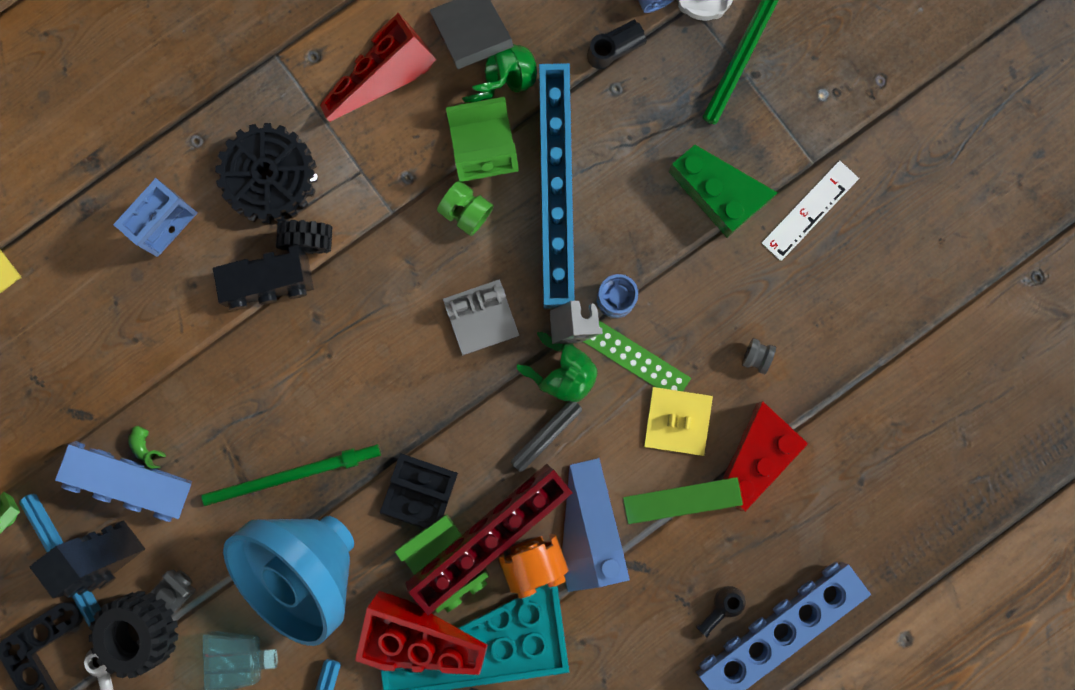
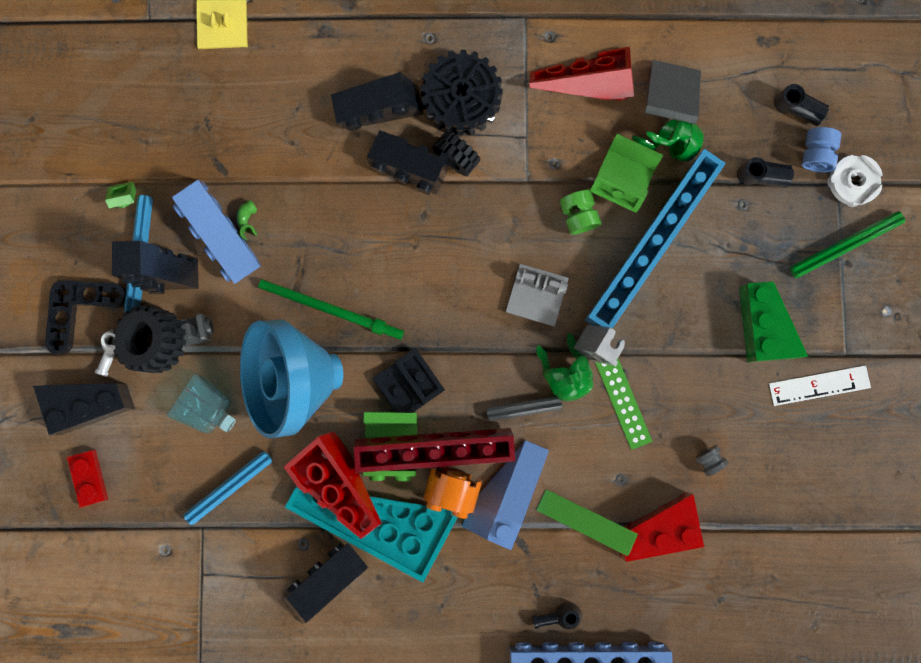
camera: 35 degrees right, 0 degrees up
(152, 215) = (352, 60): medium blue window -> none
(190, 241) = (377, 102): none -> black wedge
(617, 296) = (642, 348): medium blue wheel -> none
(678, 421) = (622, 465): light yellow piece -> none

